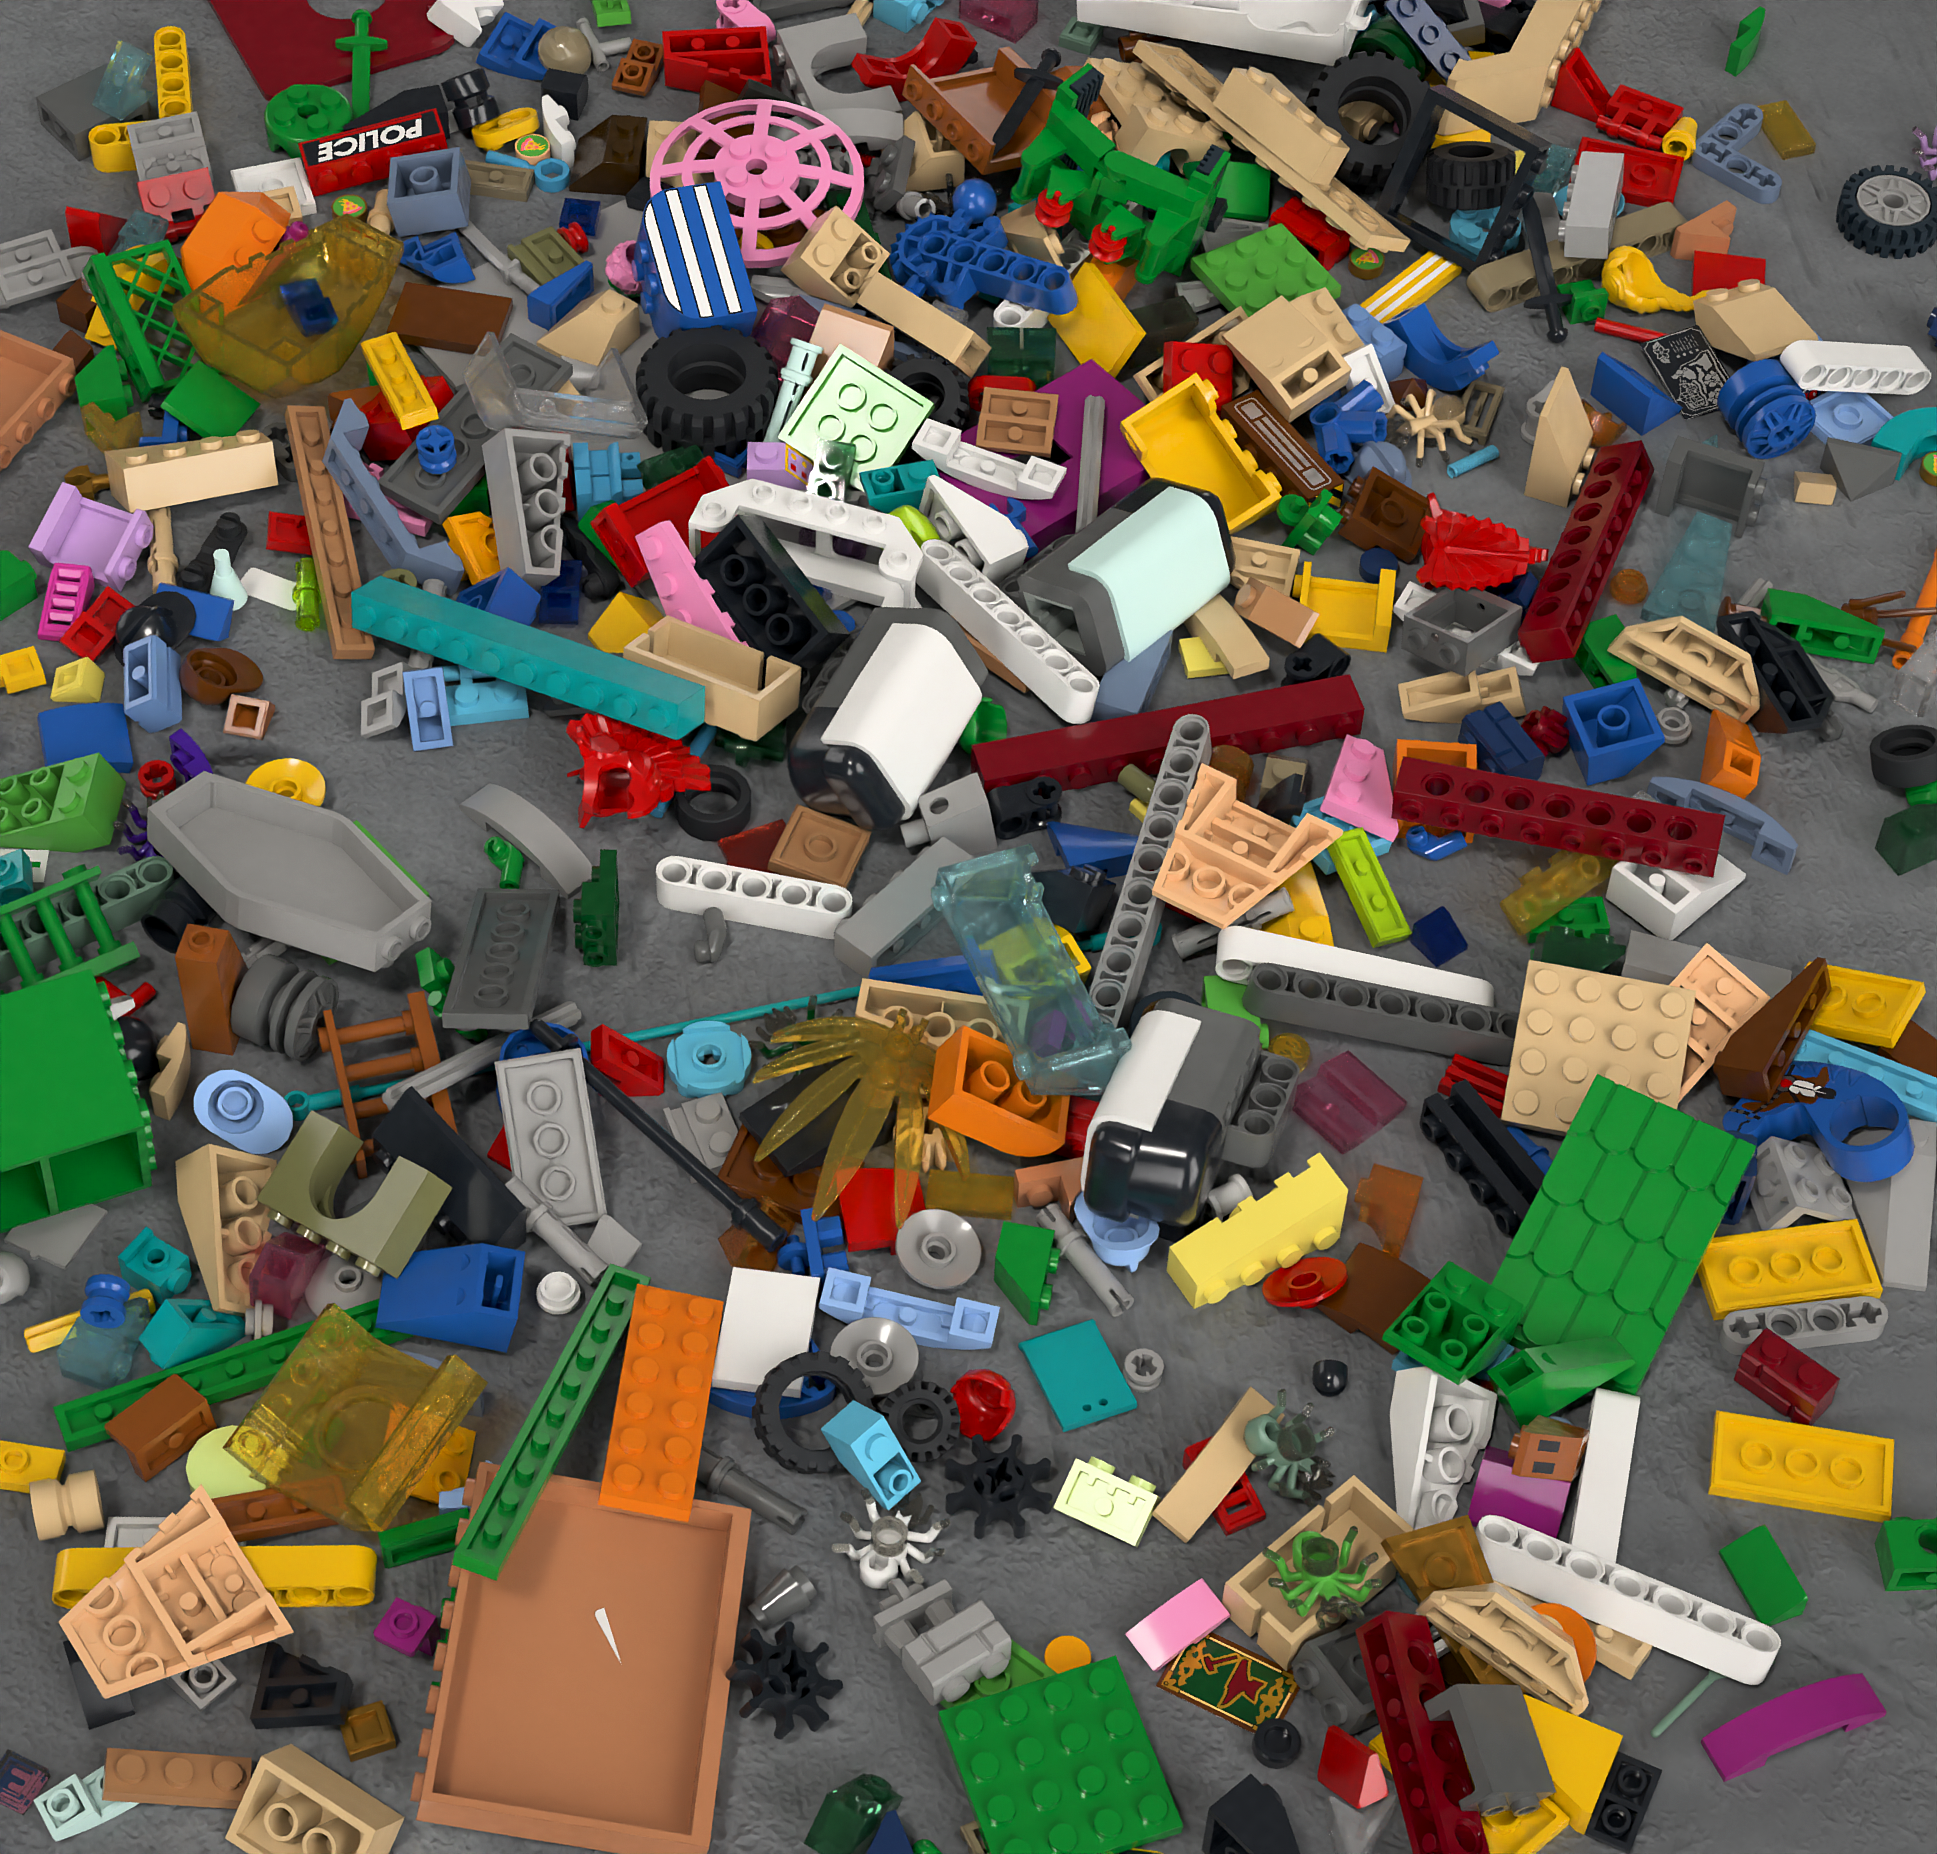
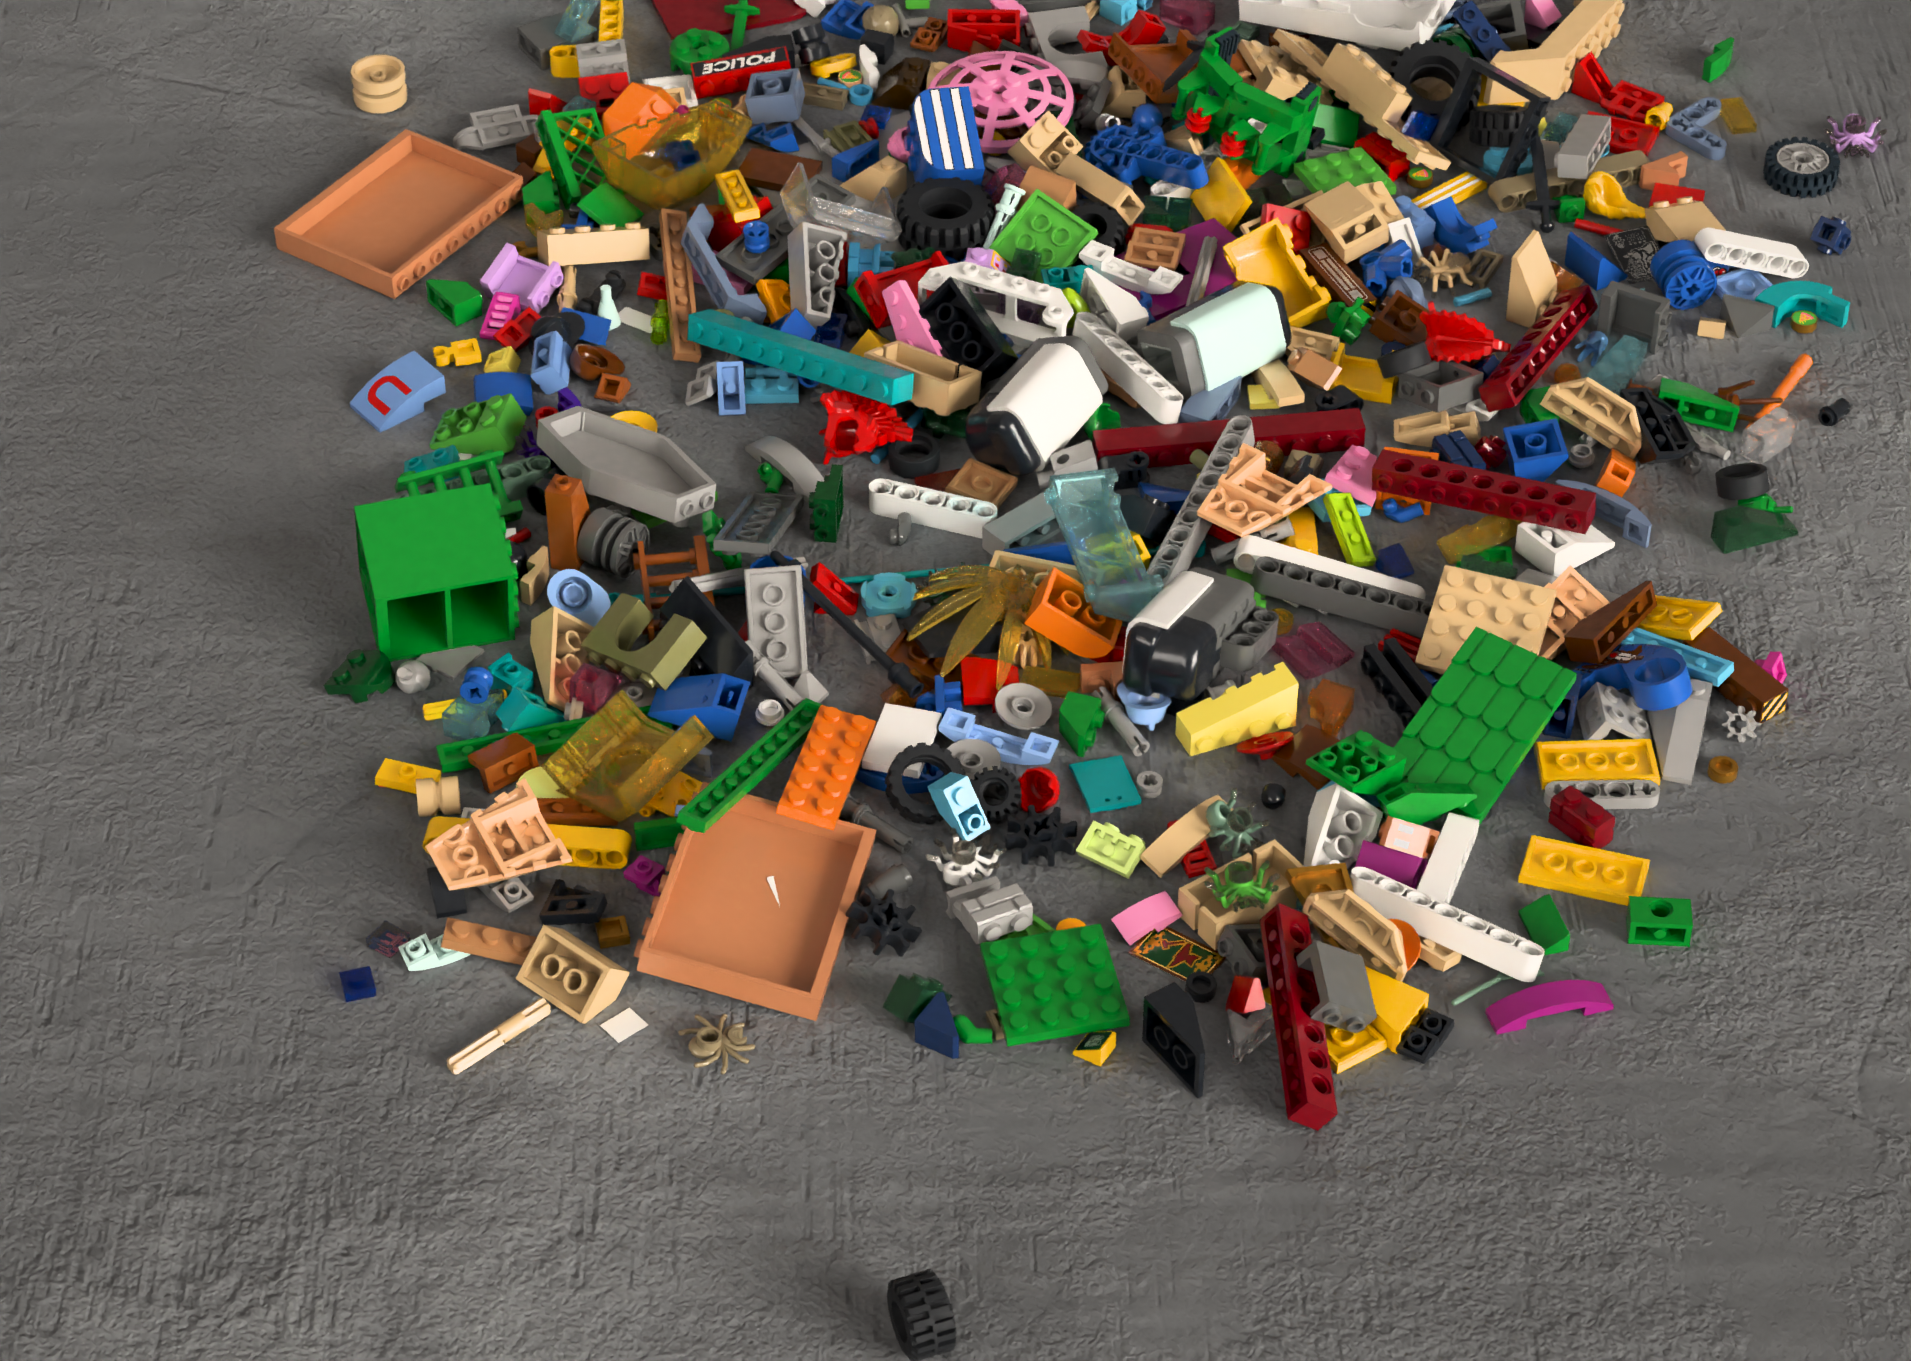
camera: 10 degrees right, 10 degrees down
(1364, 188) = (1420, 125): none -> clear blue slope
(1407, 594) = (1404, 359): none -> black tyre
(1660, 530) = (1594, 343): none -> flat silver piece

